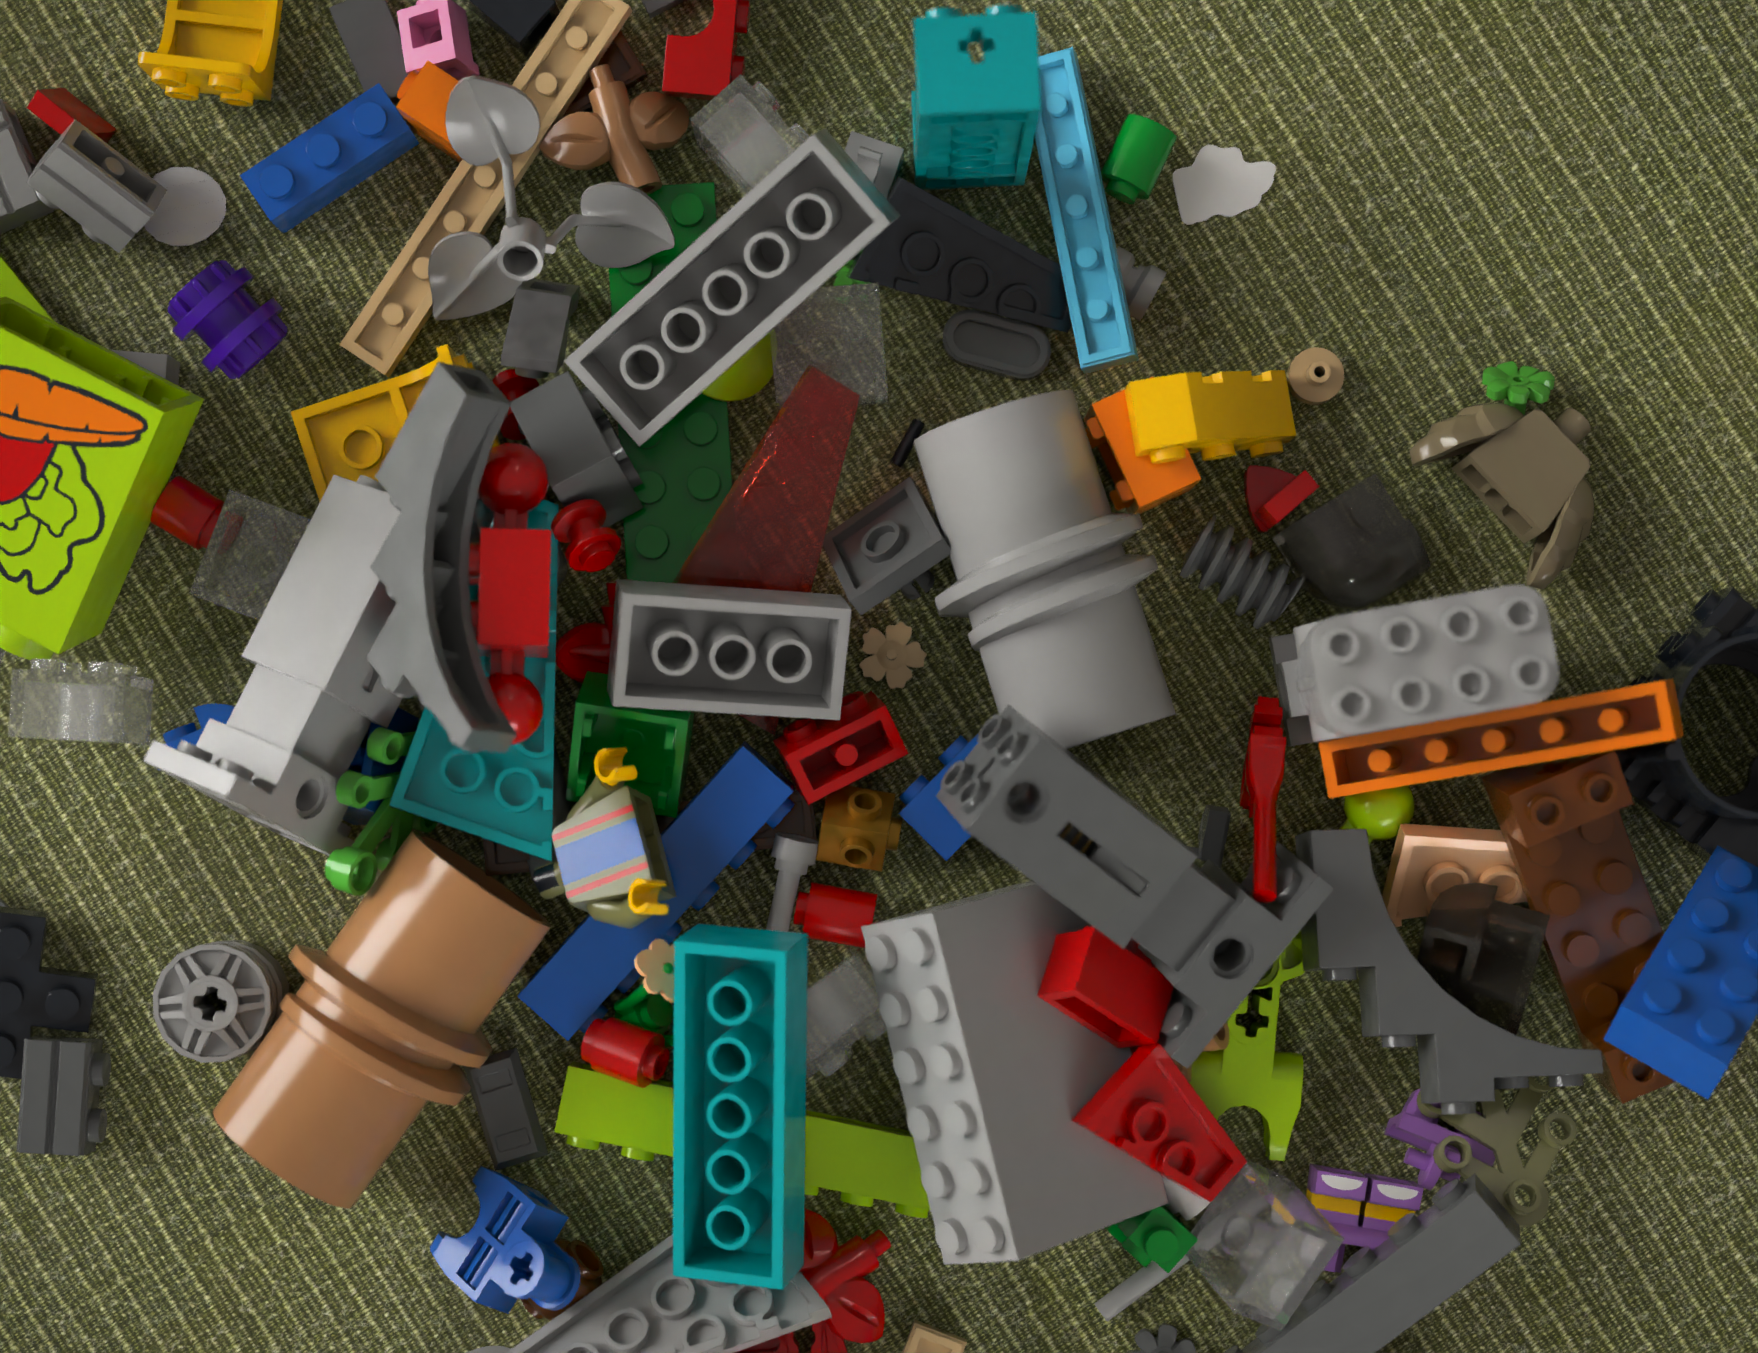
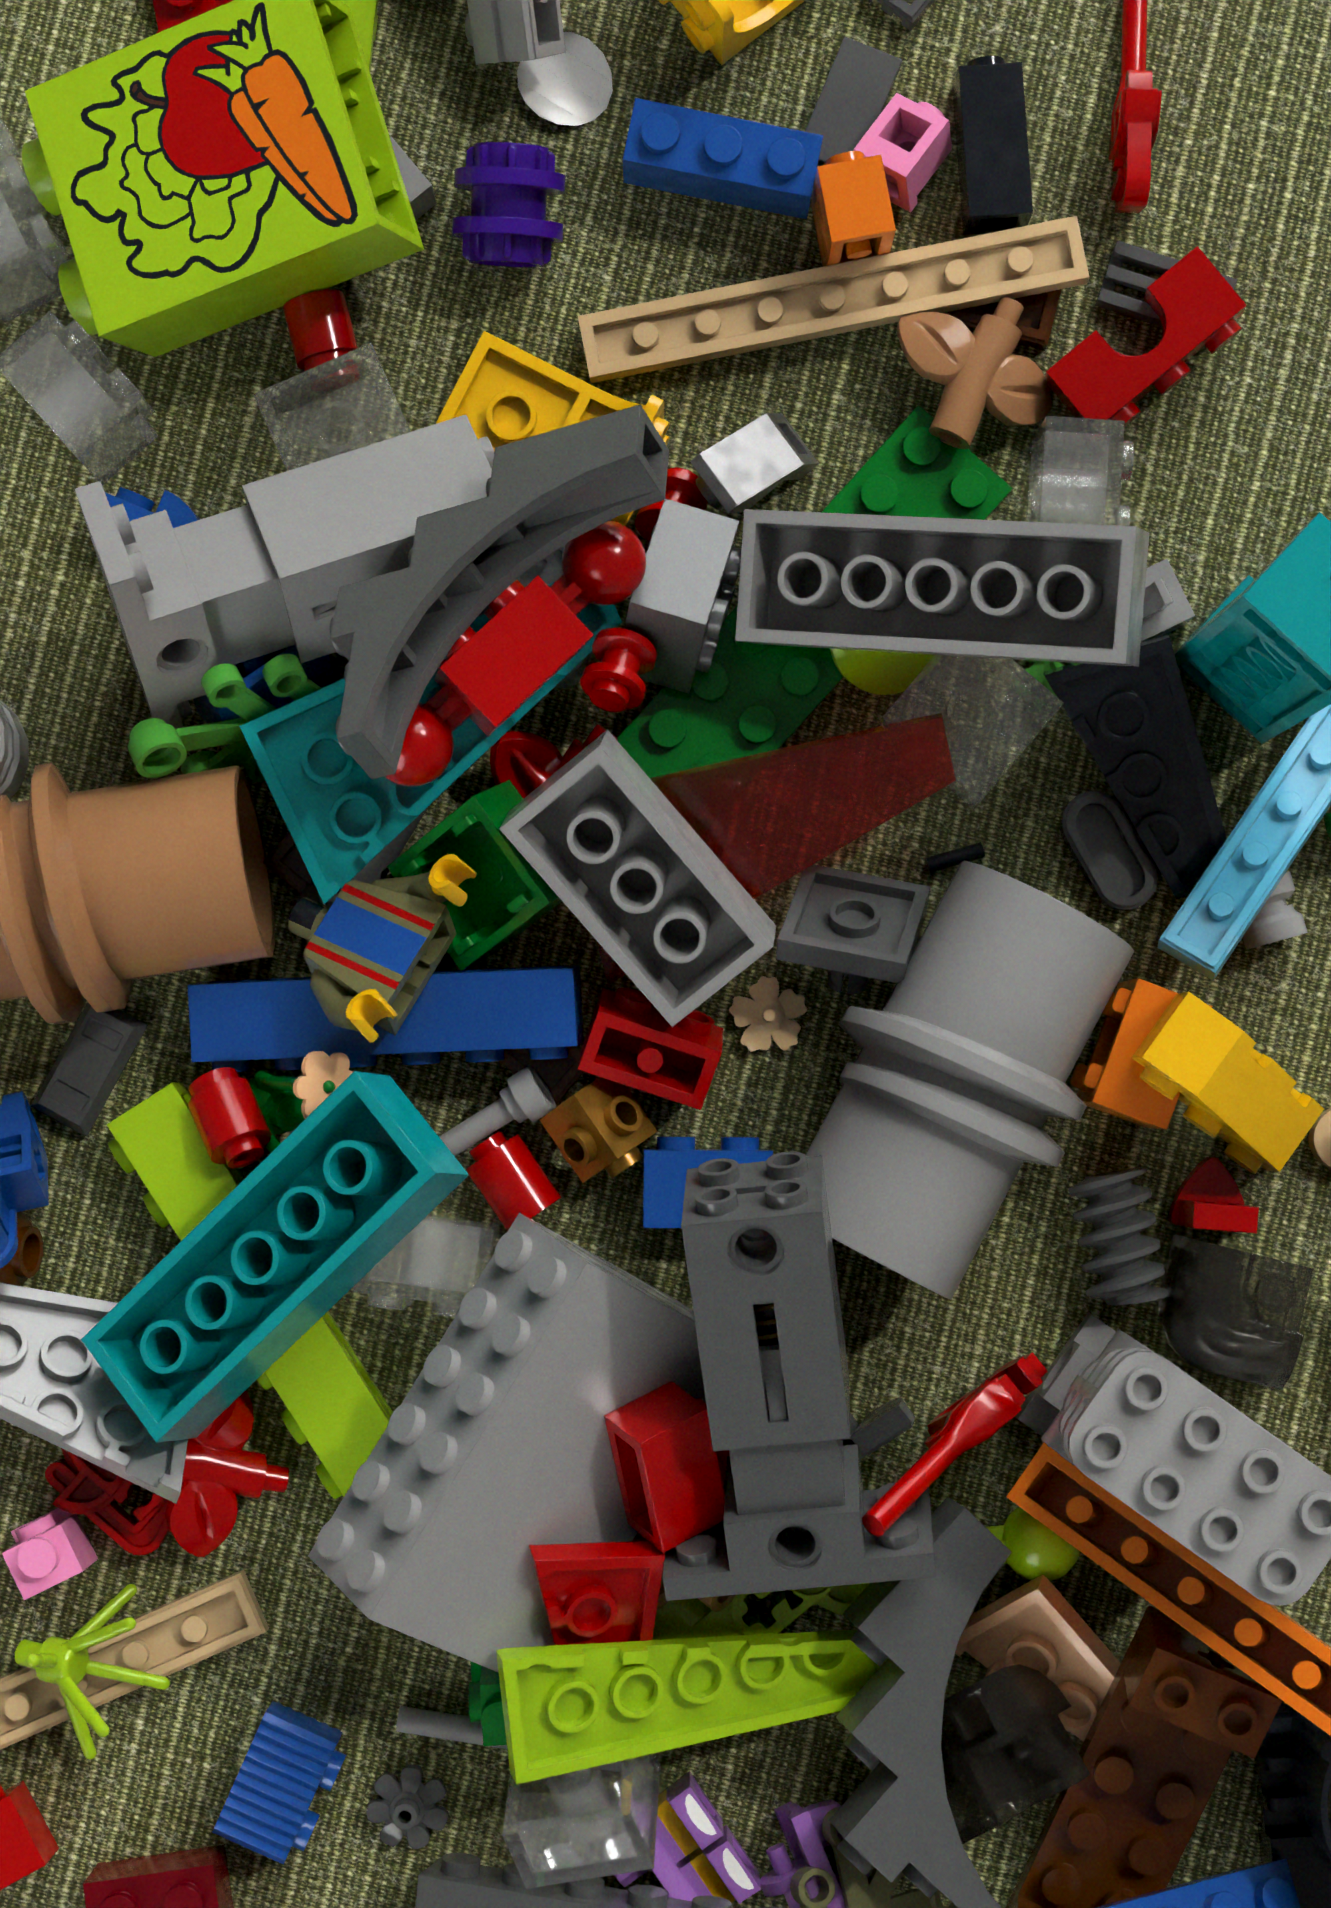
camera: 45 degrees right, 0 degrees up
(464, 269) = (740, 367): light grey plant -> none
(1231, 1146) = (638, 1698): none -> lime wing

